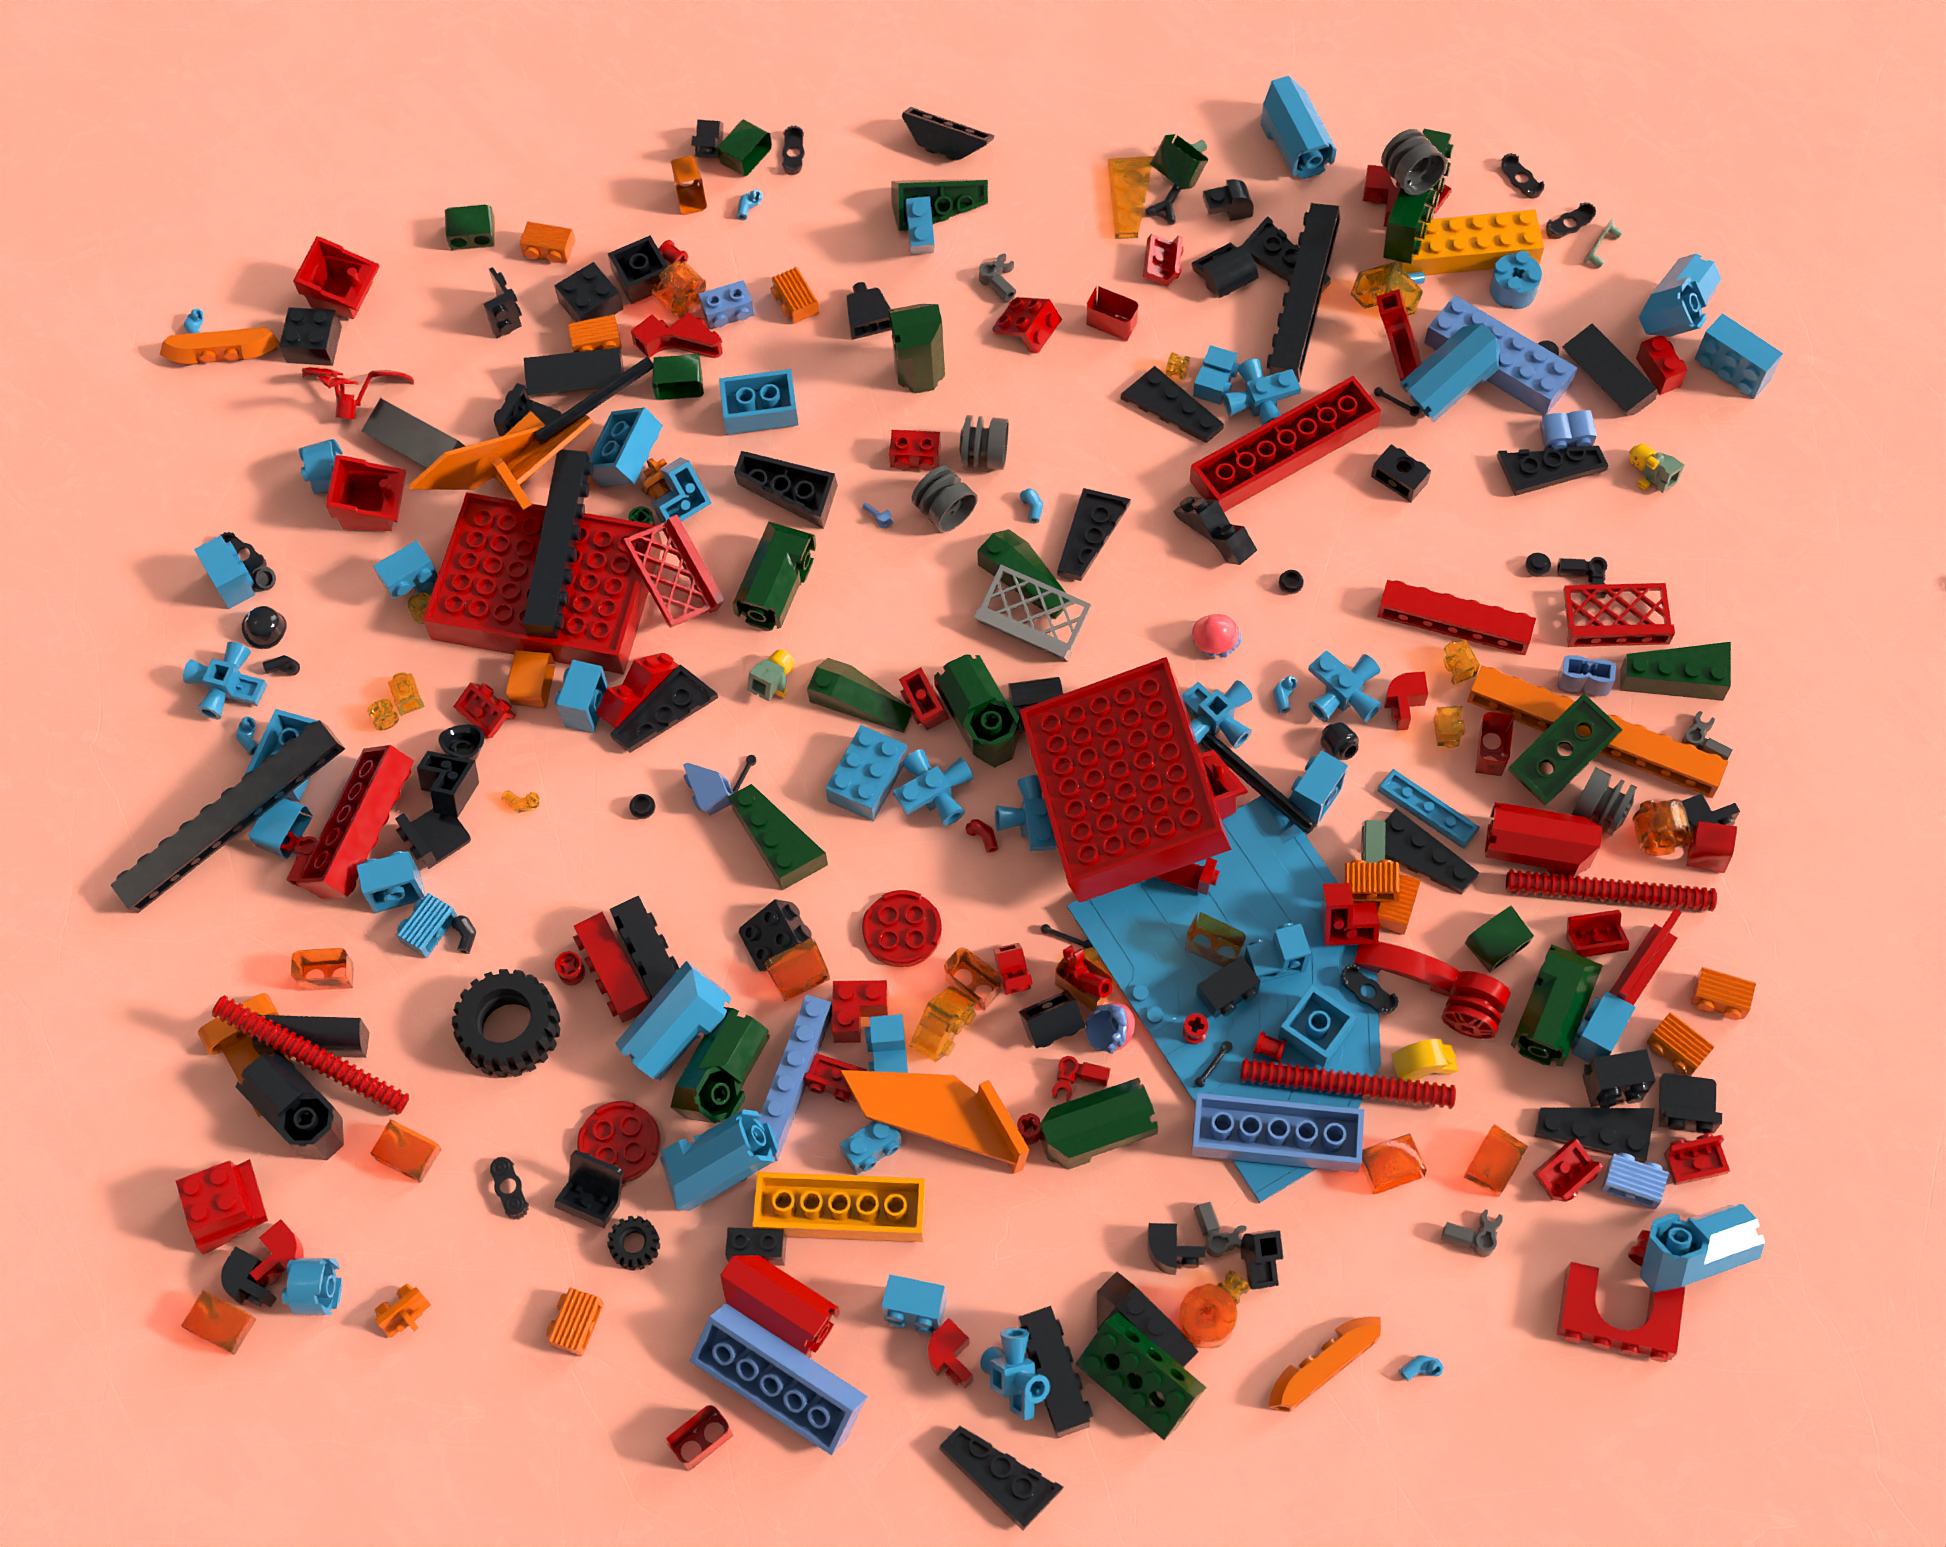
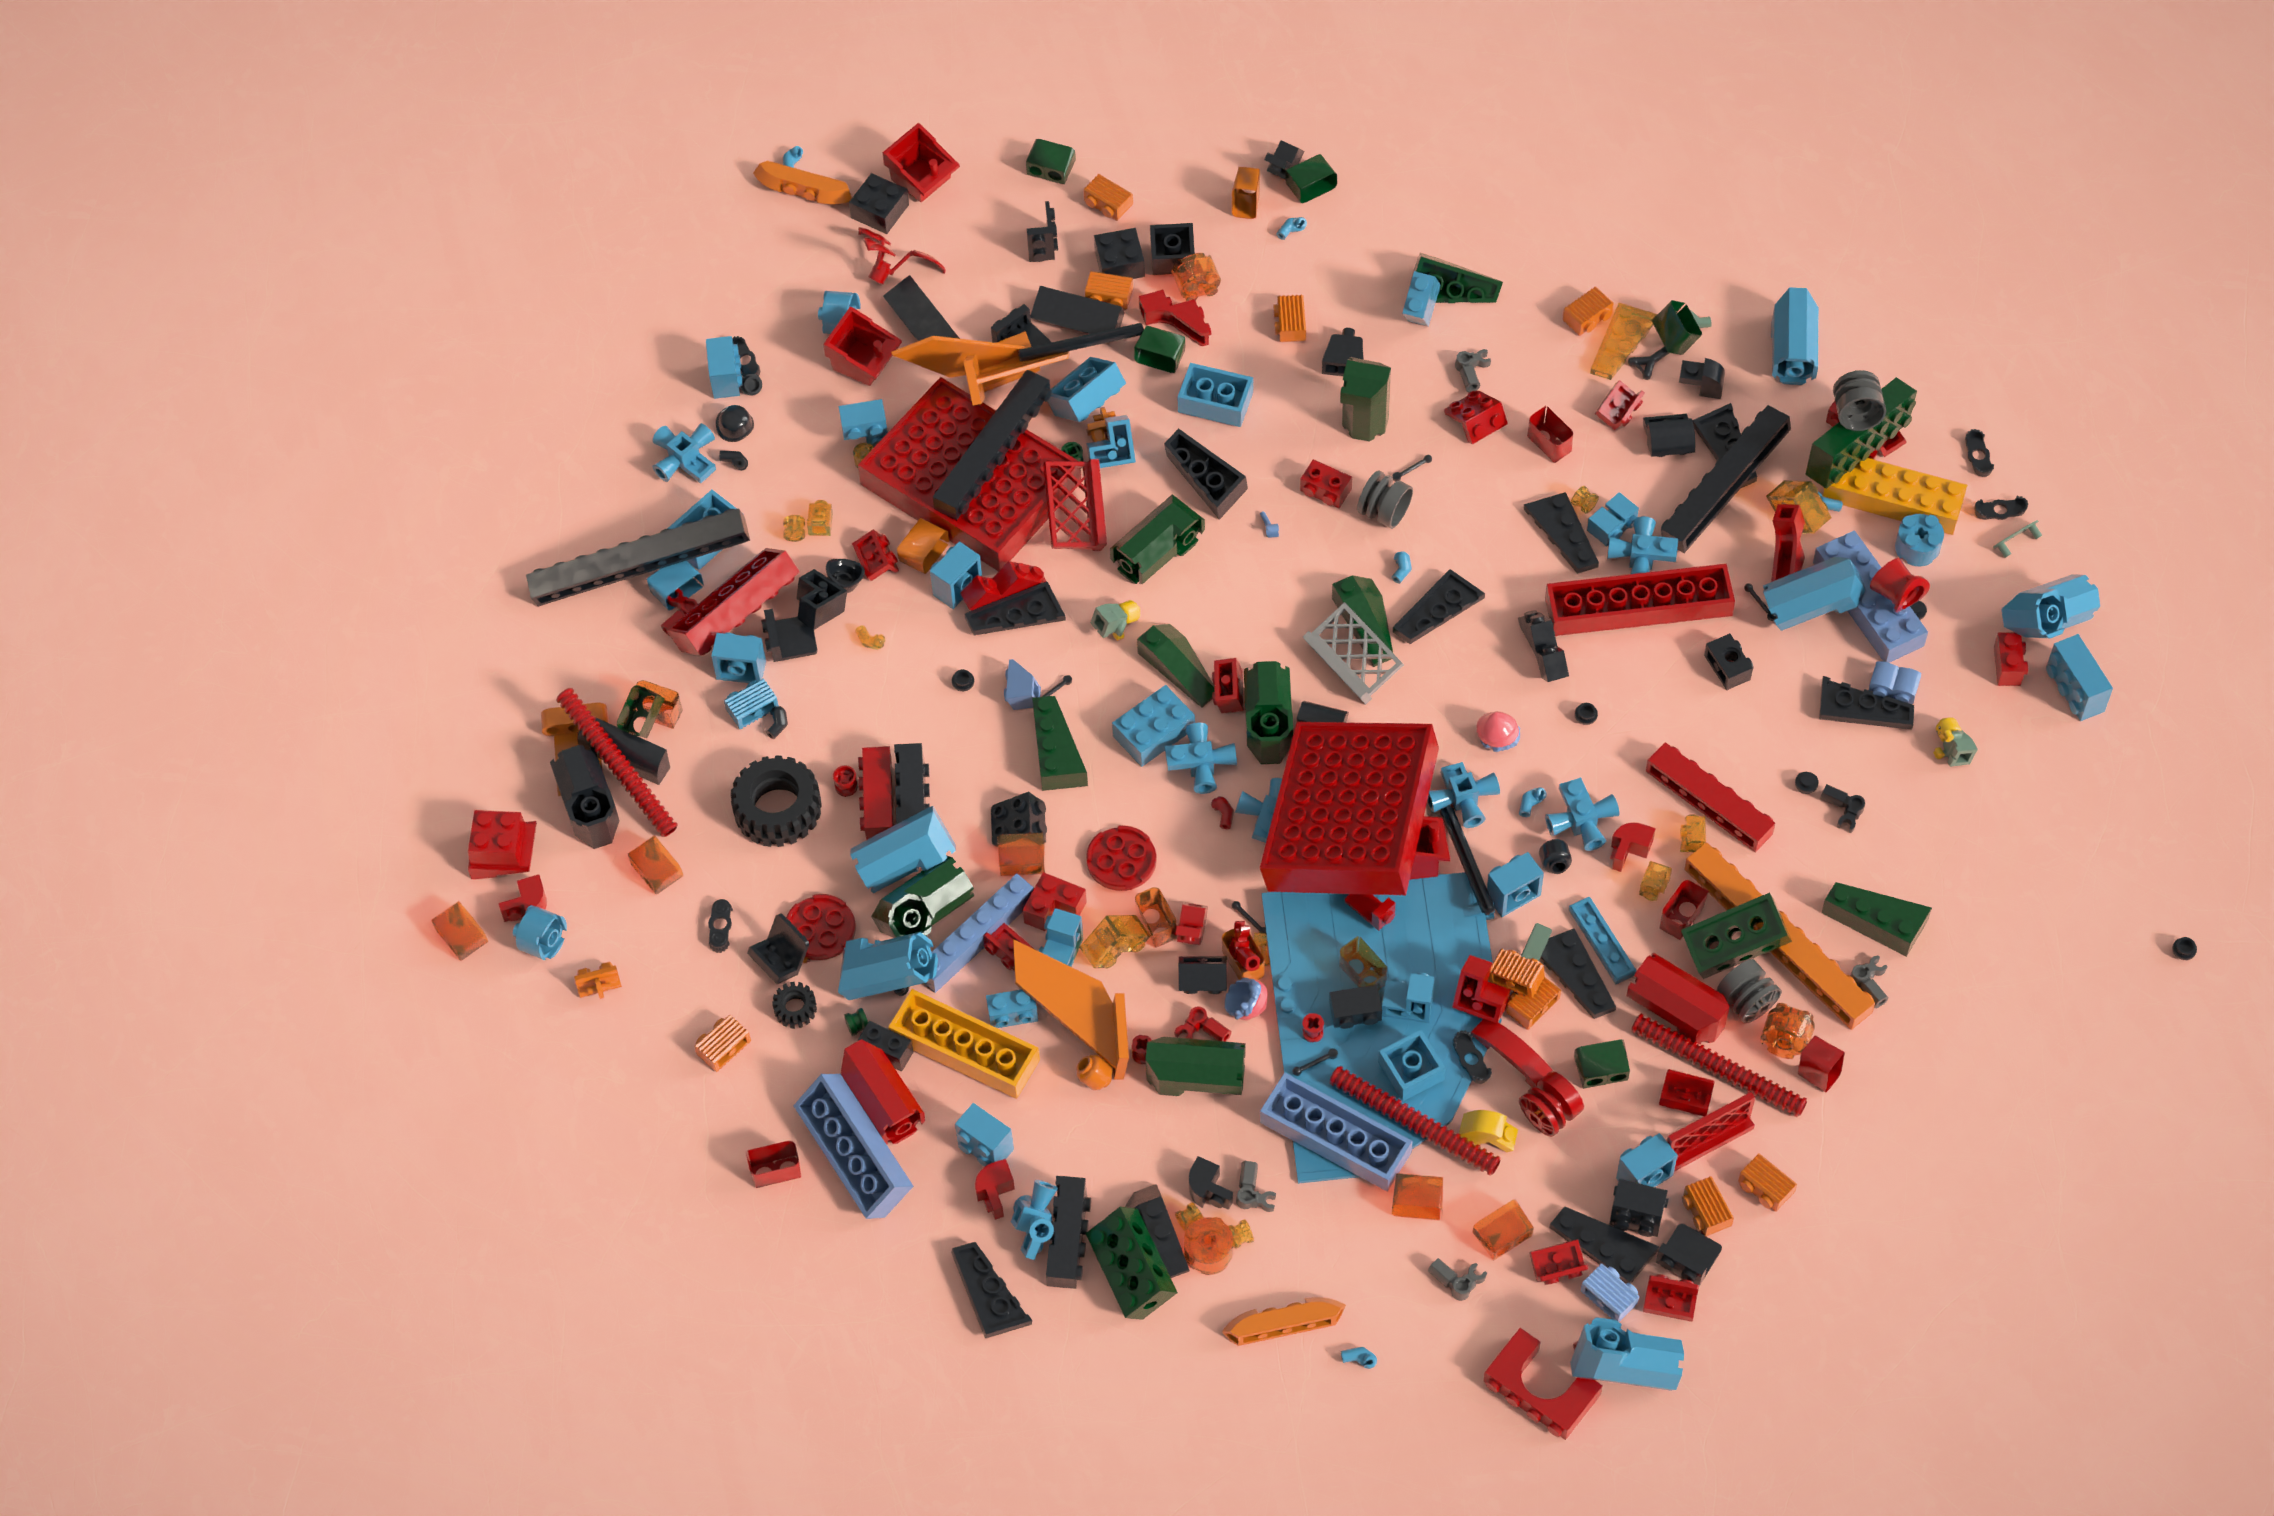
camera: 25 degrees right, 5 degrees down
(240, 1283) = (488, 909): black brick -> none
(246, 733) = (682, 500): dark azure arm -> none
(301, 994) = (630, 714): none -> piece
(672, 253) = (1205, 244): red bush -> none
(711, 1232) = (856, 1021): none -> dark green wheel
(726, 304) = (1230, 304): medium blue brick -> none
(793, 139) = (1358, 187): black piece -> none
(944, 135) = (1485, 228): black wedge -> none
(944, 498) = (1327, 532): dark grey wheel -> none
(993, 1177) = (1094, 1072): none -> orange head
(1001, 385) = (1397, 476): none -> black hinge
(1083, 177) = (1588, 311): none -> orange brick
(1171, 1293) = (1188, 1215): none -> clear yellow wheel
(1260, 1255) = (1273, 1219): black brick -> none
(1270, 1046) = (1366, 1066): red bush -> none
(1534, 331) = (1899, 585): none -> red hat
(1556, 1006) = (1616, 1129): dark green brick -> none
(1581, 674) = (1796, 888): brick -> none
(1611, 370) = (1960, 647): black brick -> none
(1618, 634) = (1840, 864): red fence -> none
(1699, 810) = (1827, 1030): black brick -> none

